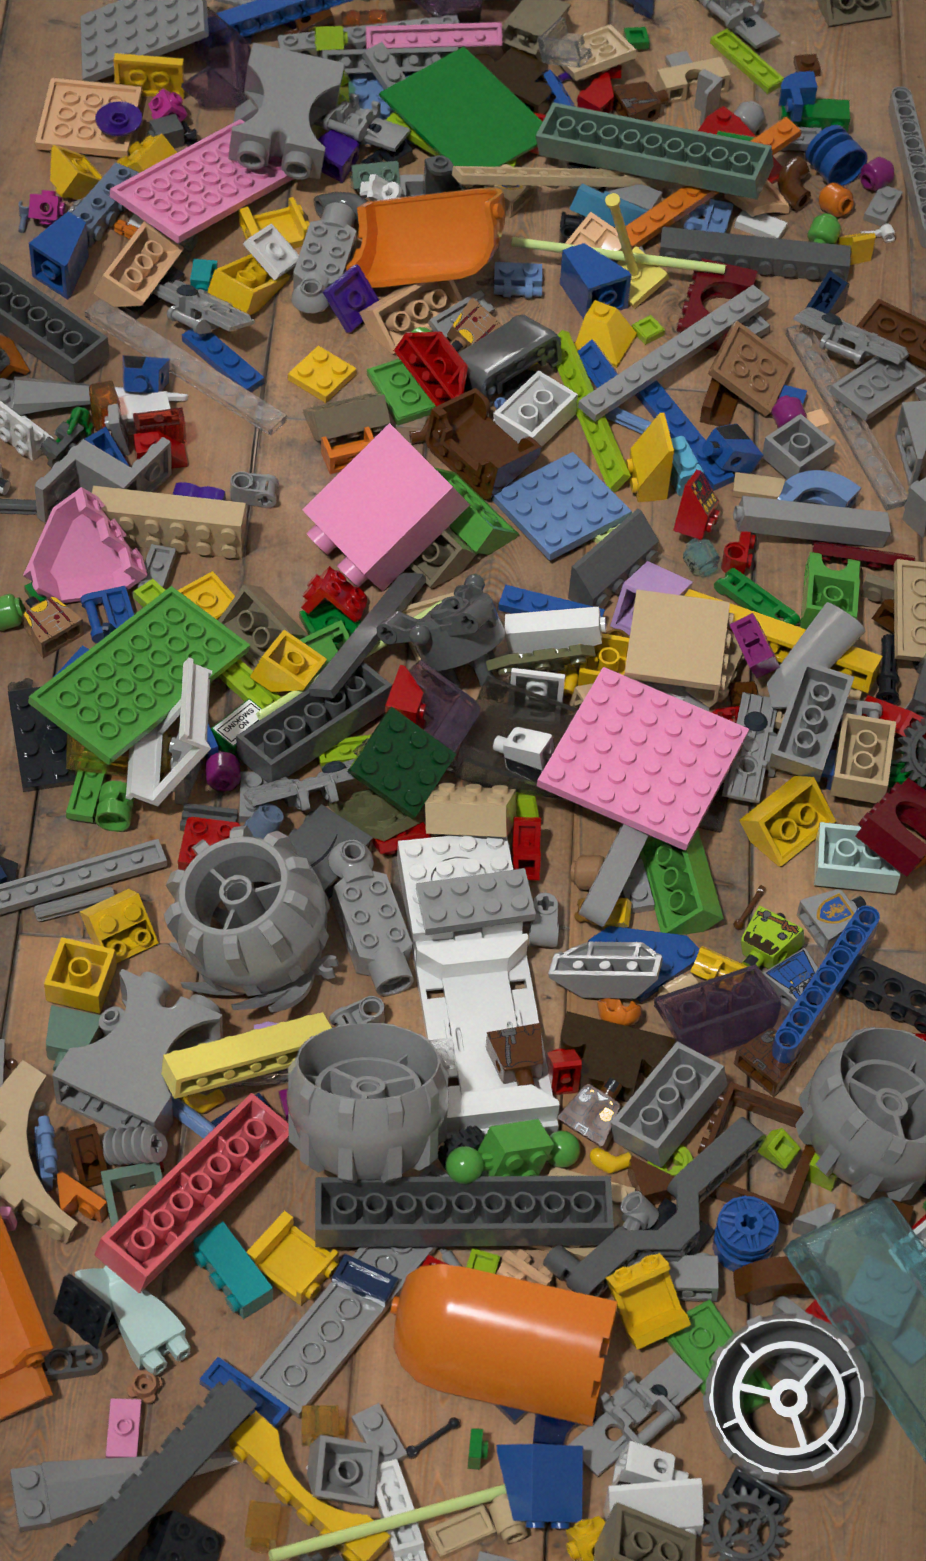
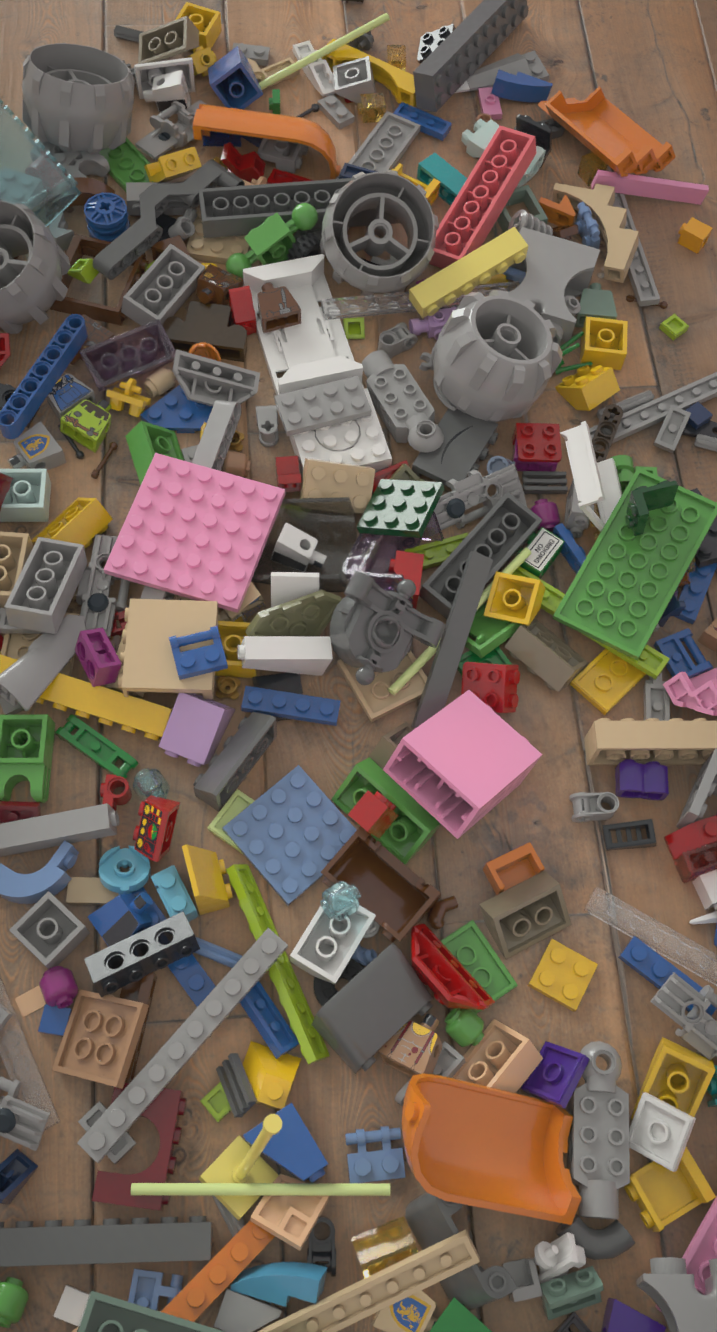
camera: 170 degrees right, 10 degrees up
(28, 856) = (672, 429): none -> light grey plate
(71, 1435) = (520, 87): none -> blue slope
(118, 695) = (646, 499): none -> dark green bracket
(127, 846) = (606, 440): none -> dark brown beam
(151, 962) = (562, 369): none -> green plant
(209, 459) = (628, 826): none -> black slope
(486, 463) = (374, 813): none -> red brick
(524, 217) = (384, 1246): none -> clear yellow brick
(527, 414) = (340, 900): none -> clear light blue head
(633, 328) = (236, 1085): none -> dark grey tile
(648, 612) = (201, 659): none -> blue plate
(729, 477) = (124, 881): none -> medium azure plate
(745, 396) = (141, 954): none -> black brick

